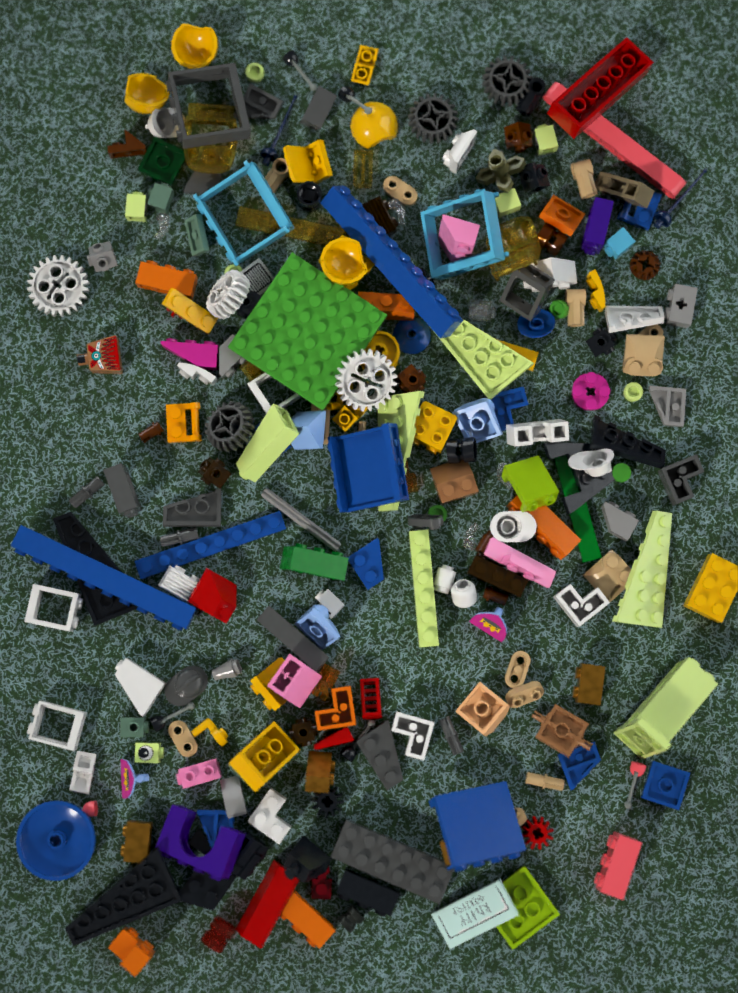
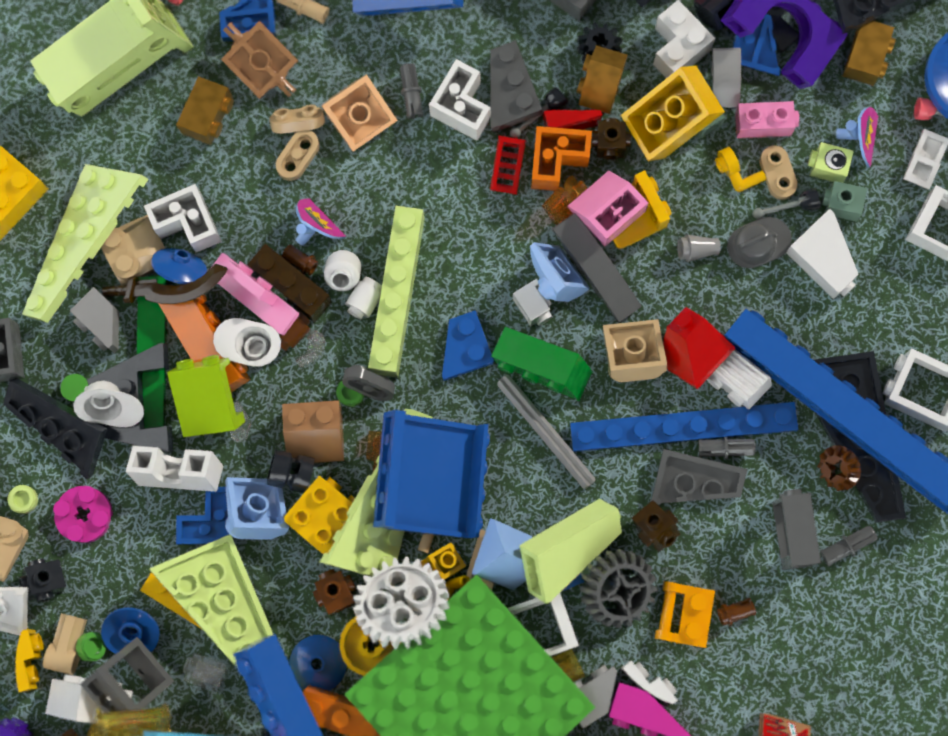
camera: 160 degrees left, 5 degrees down
(95, 541) = (849, 466): none -> reddish brown gear
(254, 587) = (634, 350): none -> tan slope
(575, 569) = (178, 265): none -> blue dish
(577, 546) = (163, 293): none -> dark brown sword

